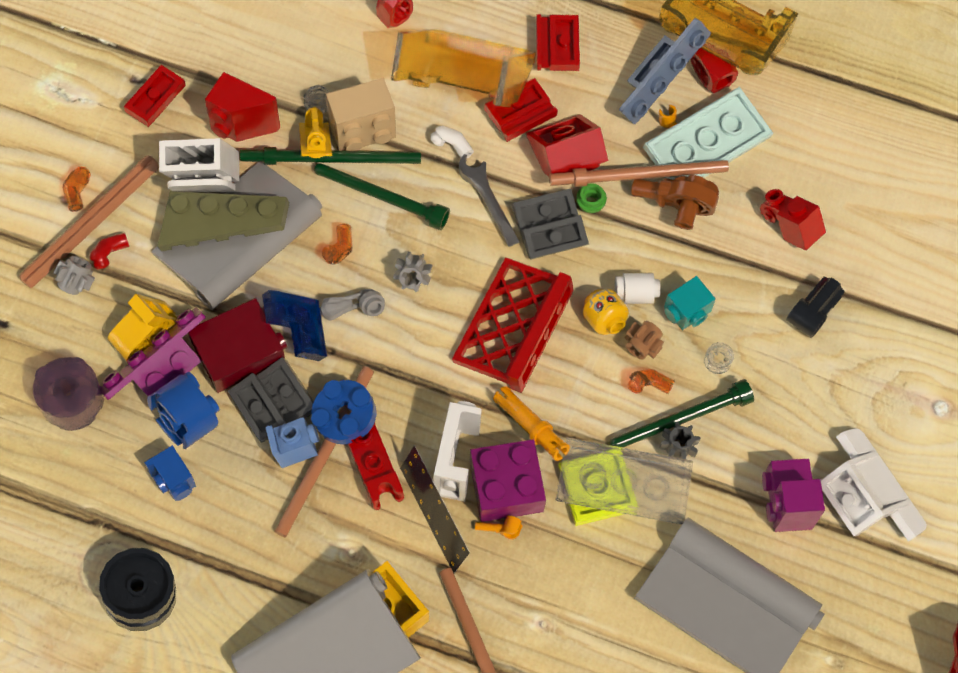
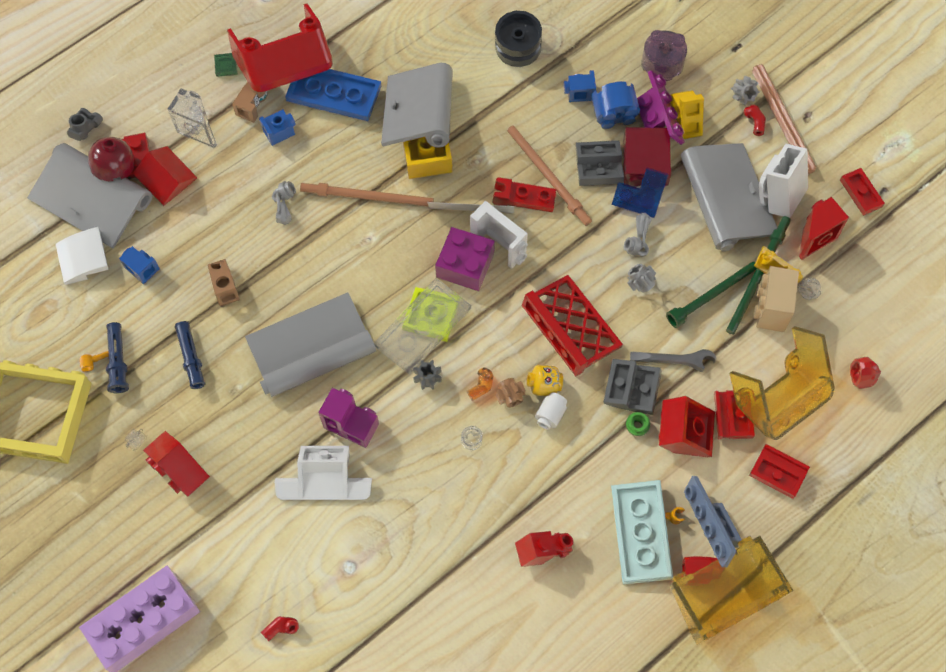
camera: 125 degrees right, 0 degrees up
(74, 186) = (814, 119): clear orange arm -> none
(210, 216) = (740, 182): olive wing -> none
(293, 442) = (562, 154): medium blue brick -> none
(331, 399) = (565, 179): blue plate -> none
(341, 248) = (684, 248): clear orange arm -> none
(453, 137) = (735, 359): white arm -> none
(510, 528) = (436, 247): light orange hand -> none
(538, 430) = (482, 290): light orange pin -> none
(581, 177) = (653, 417): nougat bar -> none
(688, 194) = (604, 479): dark orange pin -> none
(689, 304) = (519, 438): teal brick -> none
(738, 394) = (438, 433): dark green piece -> none
(812, 311) = (467, 518): black piece -> none

